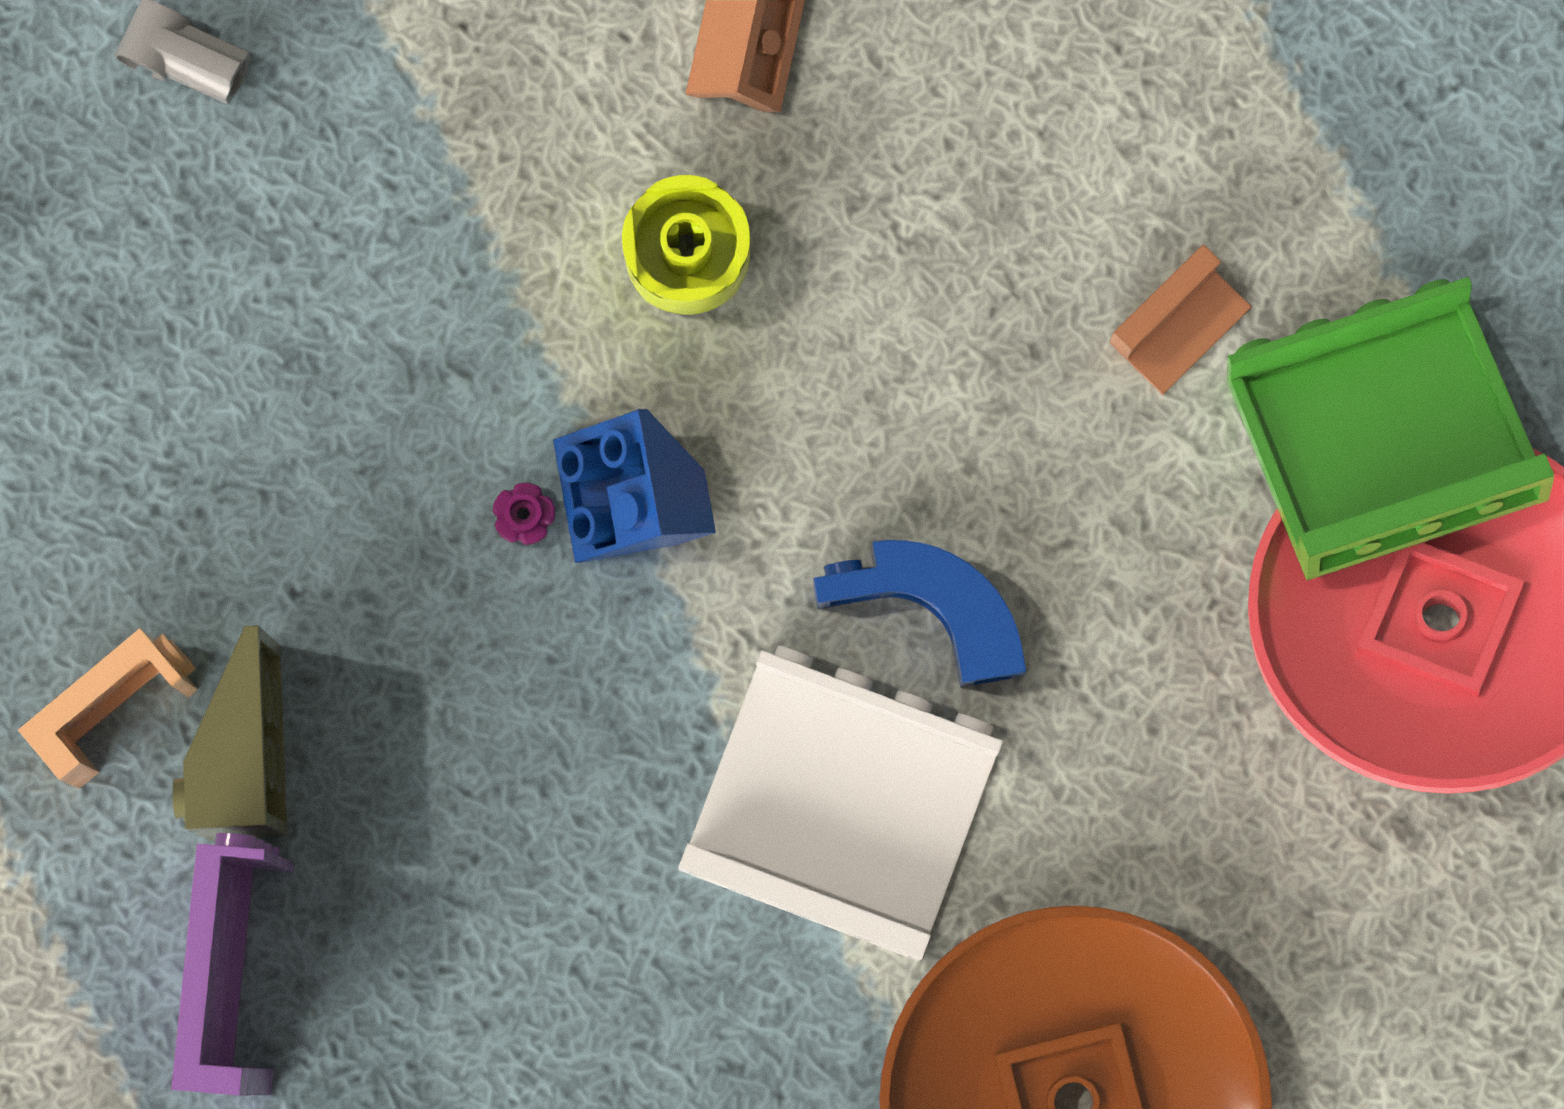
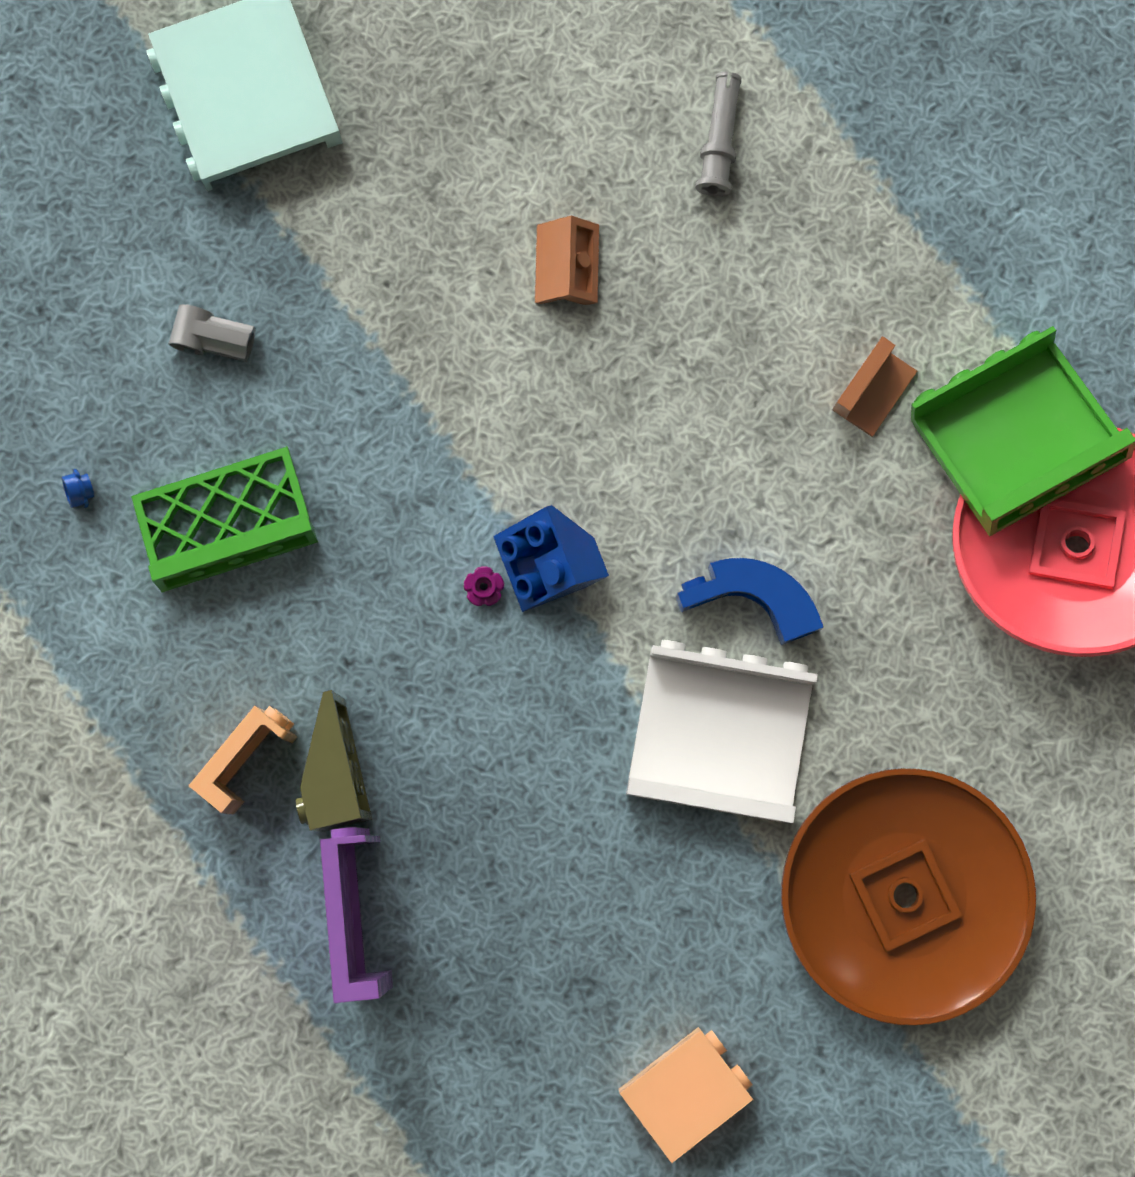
camera: 10 degrees left, 0 degrees up
(143, 389) = (230, 552): none -> bright green fence
(654, 229) = (571, 380): neon yellow brick -> none

